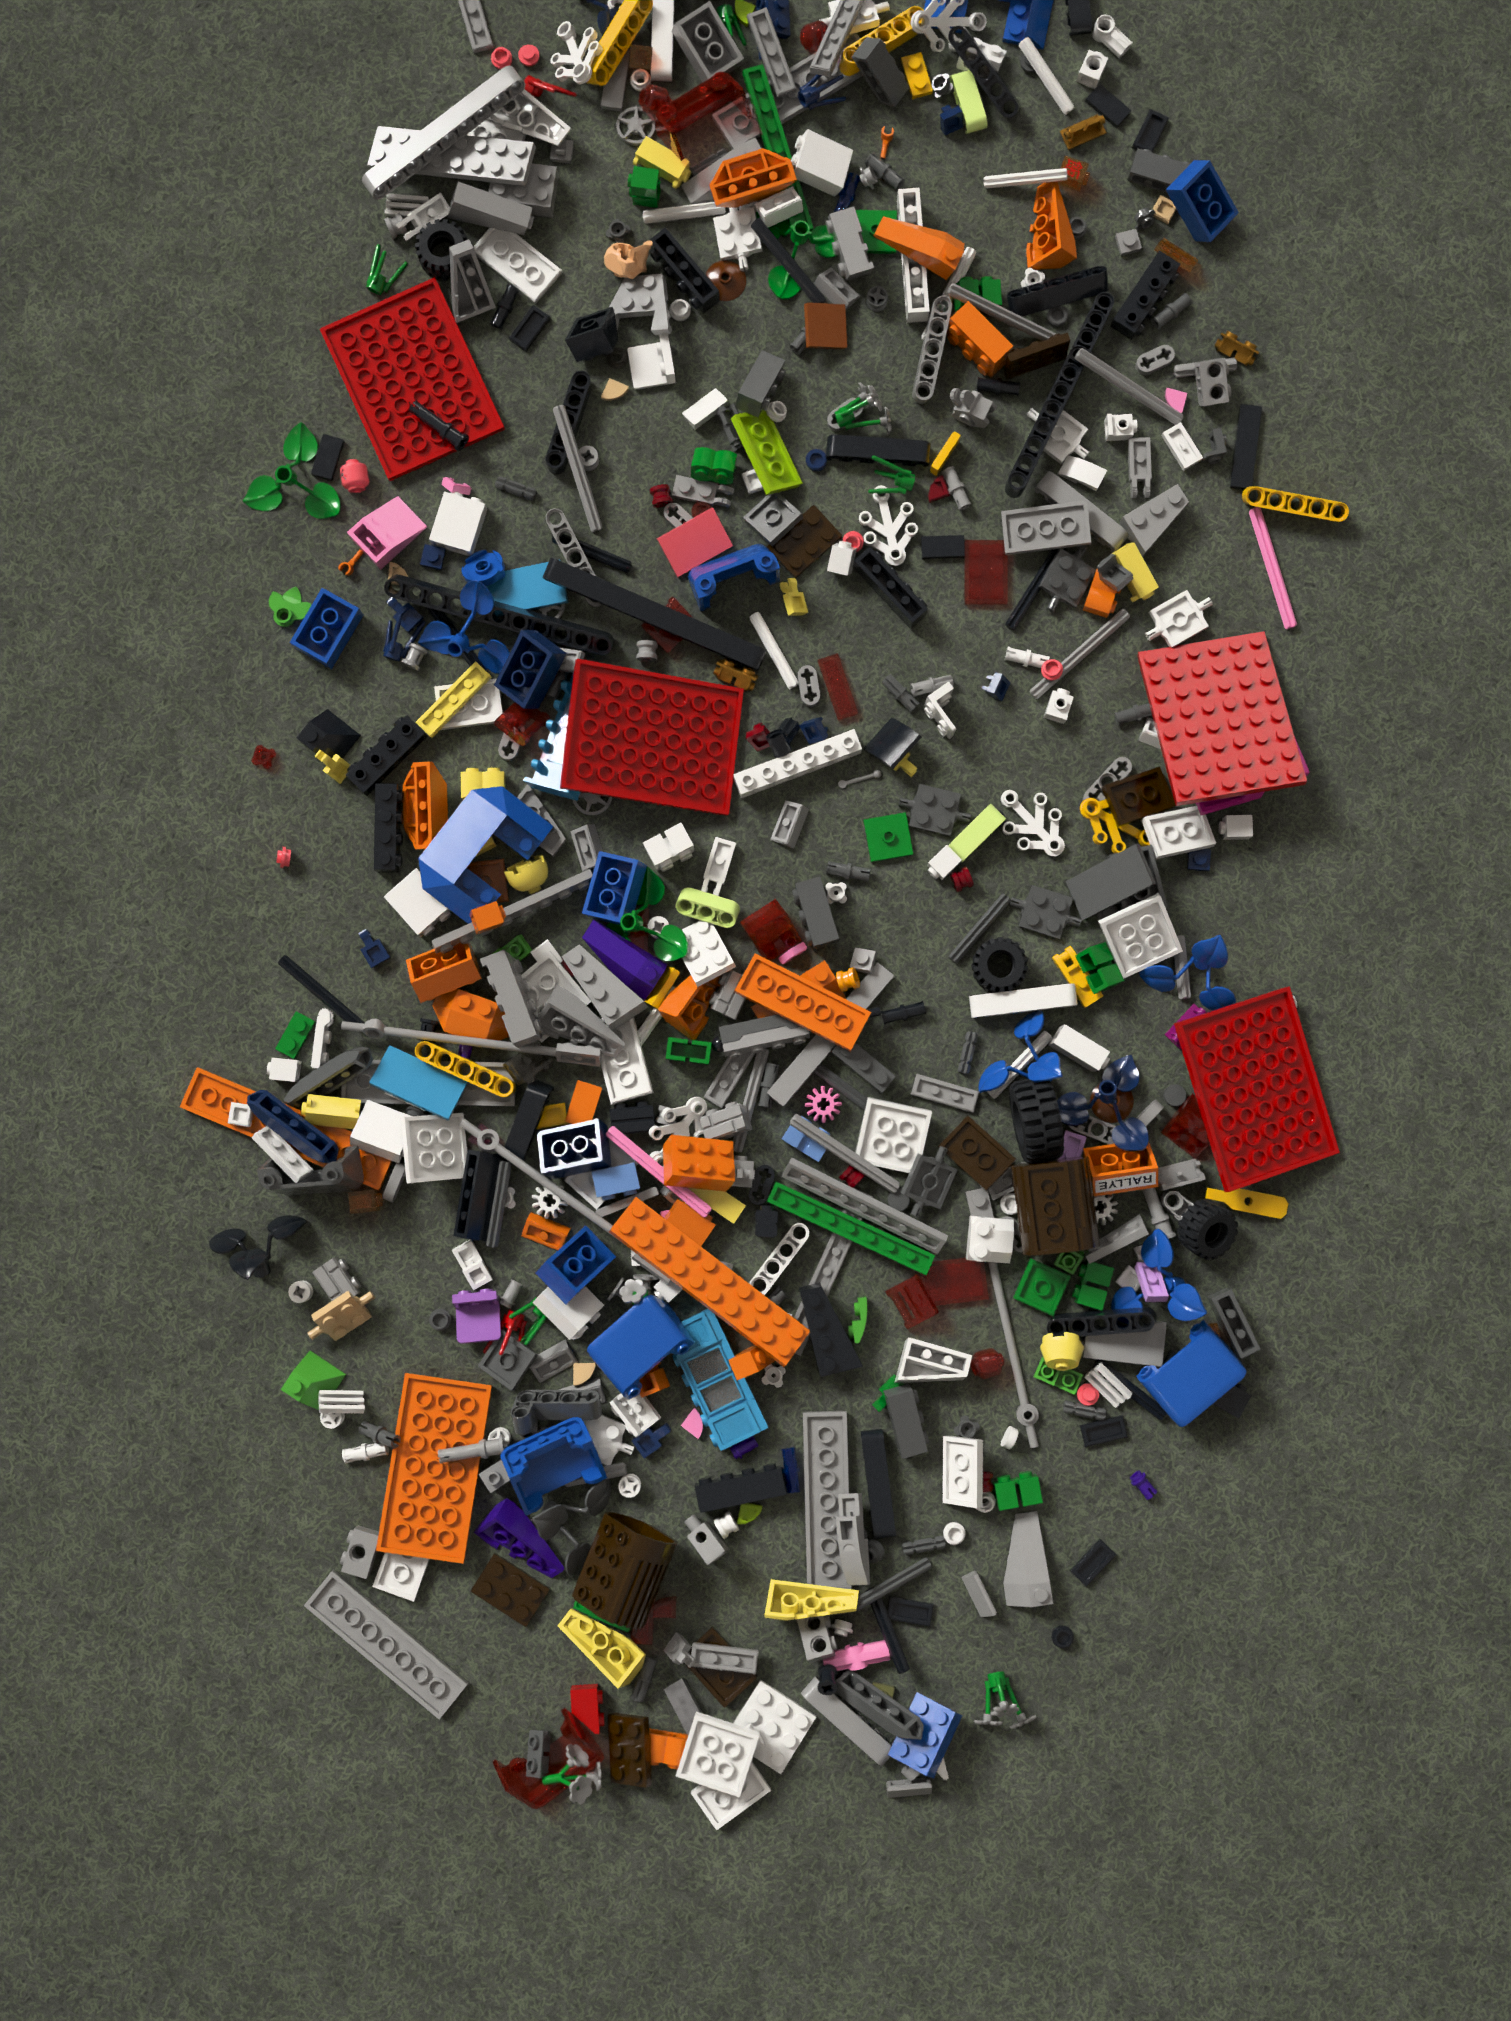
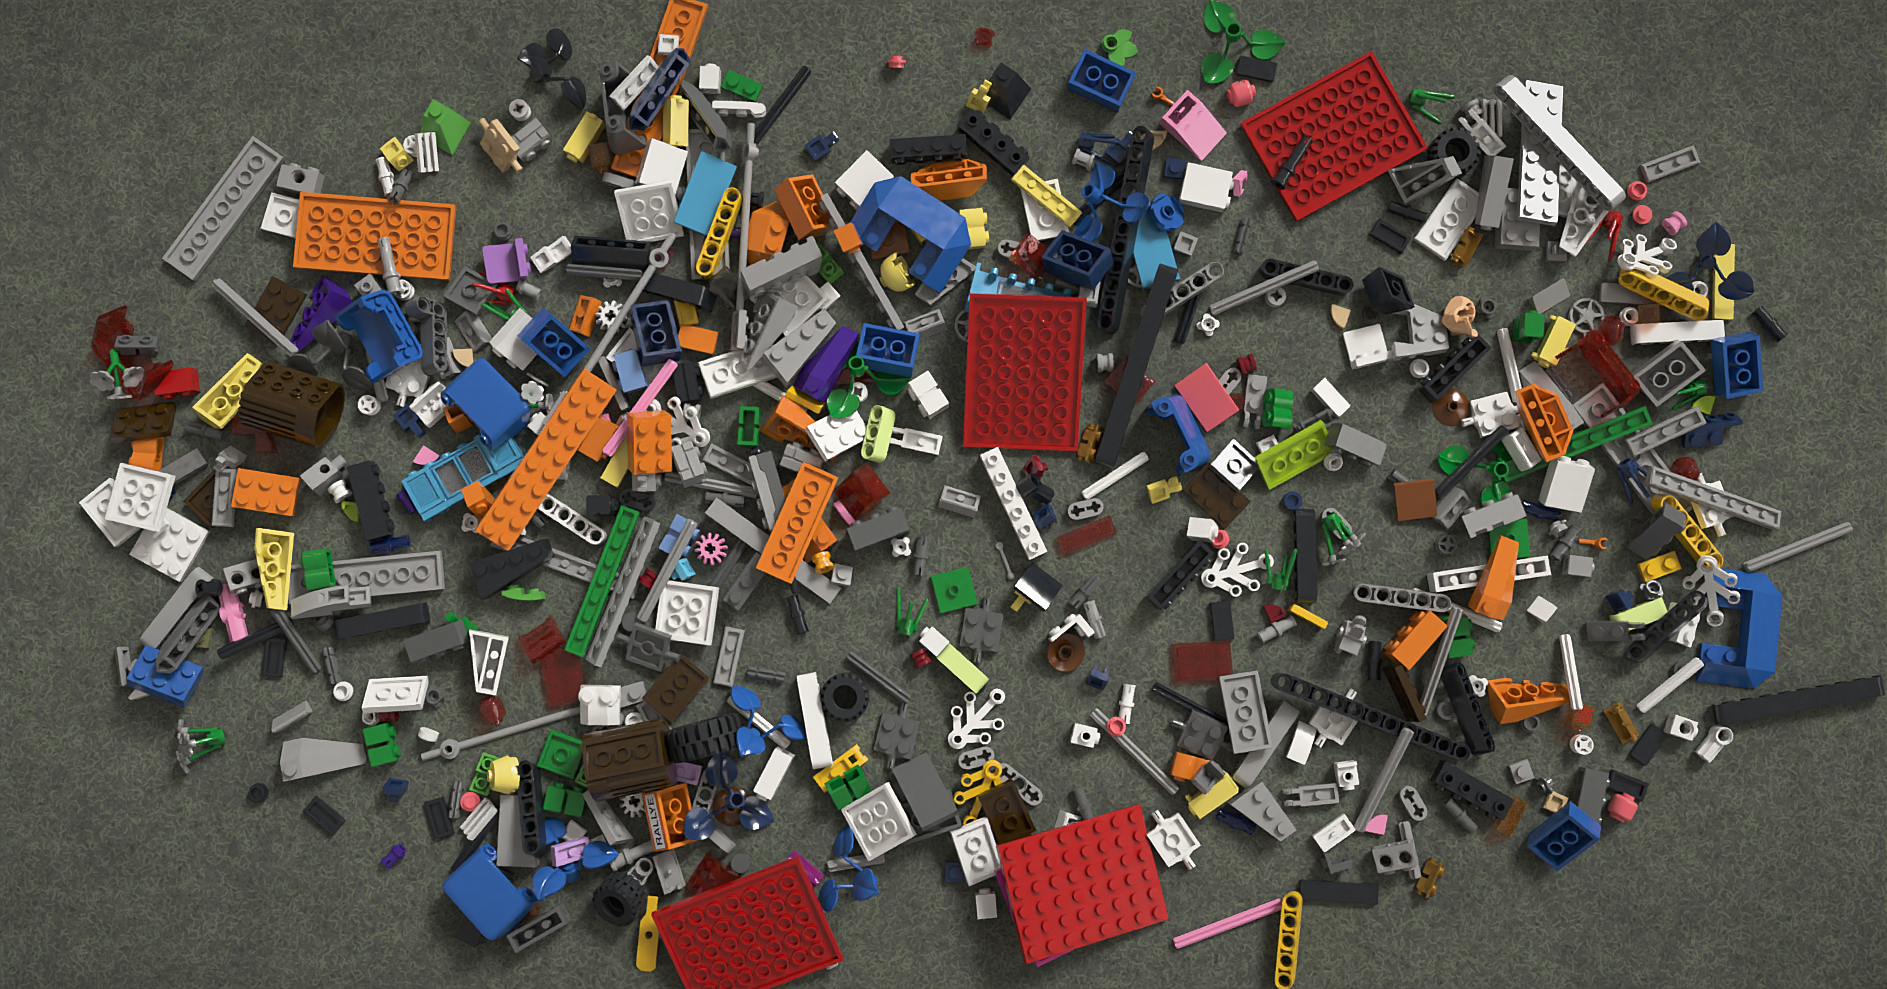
camera: 80 degrees right, 0 degrees up
(339, 1438) = (396, 154): none -> light yellow bracket
(340, 1219) = (585, 134): none -> light yellow brick
(517, 1612) = (252, 315): none -> light grey axle
(520, 551) = (1185, 244): none -> light grey plate
(541, 21) = (1674, 223): none -> bright pink wheel
(550, 246) = (1466, 248): none -> pearl gold hinge
(606, 534) = (1208, 319): none -> white plate
(611, 162) = (1550, 296): none -> light grey slope
(722, 1608) = (266, 492): none -> orange brick
(815, 1551) = (318, 569): none -> green brick
(845, 1137) = (683, 570): none -> medium azure tile
(910, 160) = (1578, 566): none -> light grey brick
(923, 890) = (907, 626): none -> green plant
(954, 203) = (1541, 609): none -> white slope
(973, 713) = (1073, 657): none -> reddish brown dish
(984, 128) = (1613, 630): none -> dark grey hinge
(1068, 1478) = (395, 788): none -> dark blue tile
(1070, 828) = (974, 753): none -> light grey beam
(1106, 171) = (1585, 744): none -> white wheel
(1163, 550) = (1235, 821): none -> clear blue pin
(1174, 138) = (1622, 807): none -> coral head

